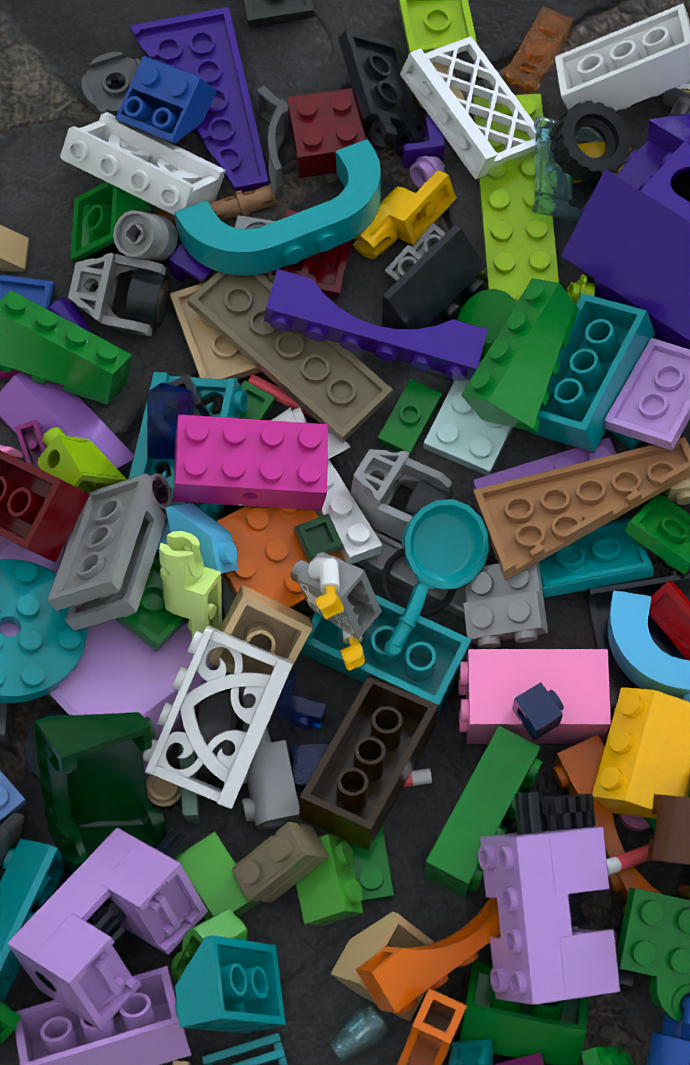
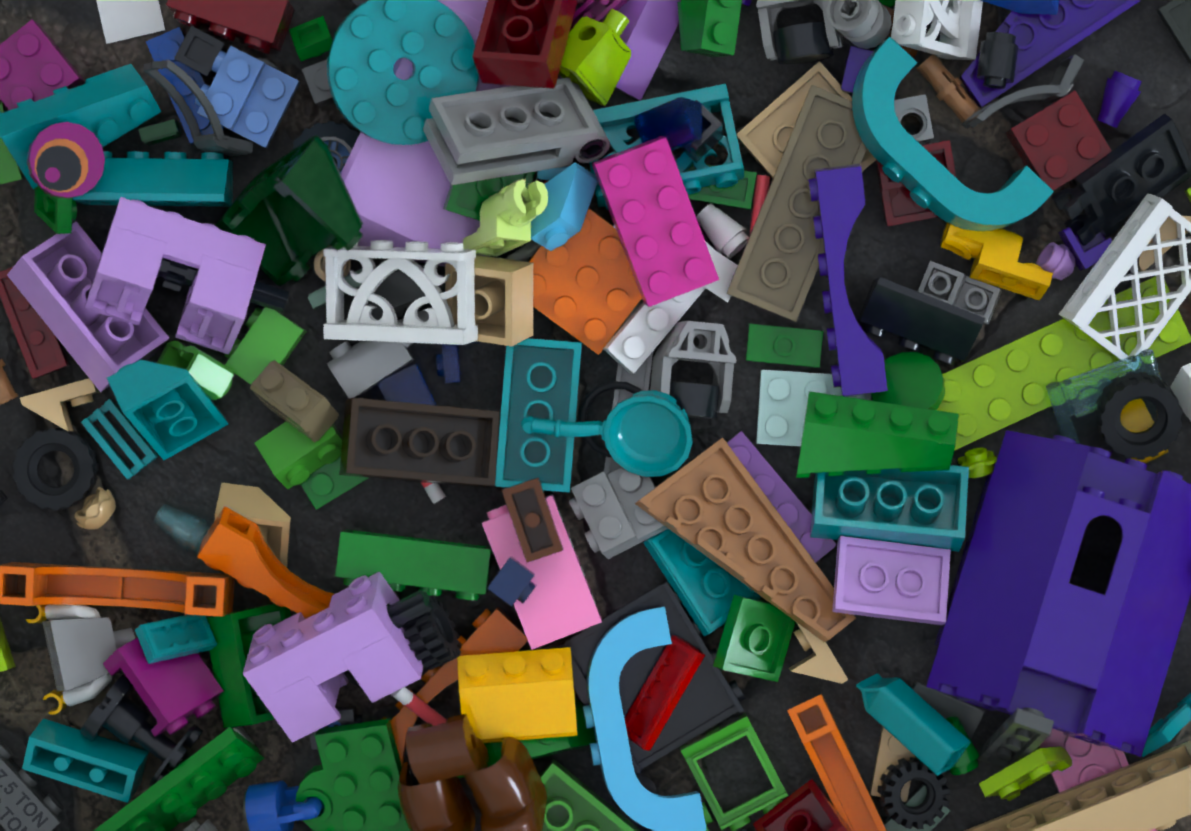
camera: 65 degrees right, 20 degrees up
(234, 148) = (997, 60): none -> black brick
(306, 75) = (1118, 98): none -> dark purple cone
(317, 537) = (613, 312): dark green tile -> none
(341, 596) = (549, 360): torso -> none
(486, 665) = (532, 519): none -> reddish brown brick

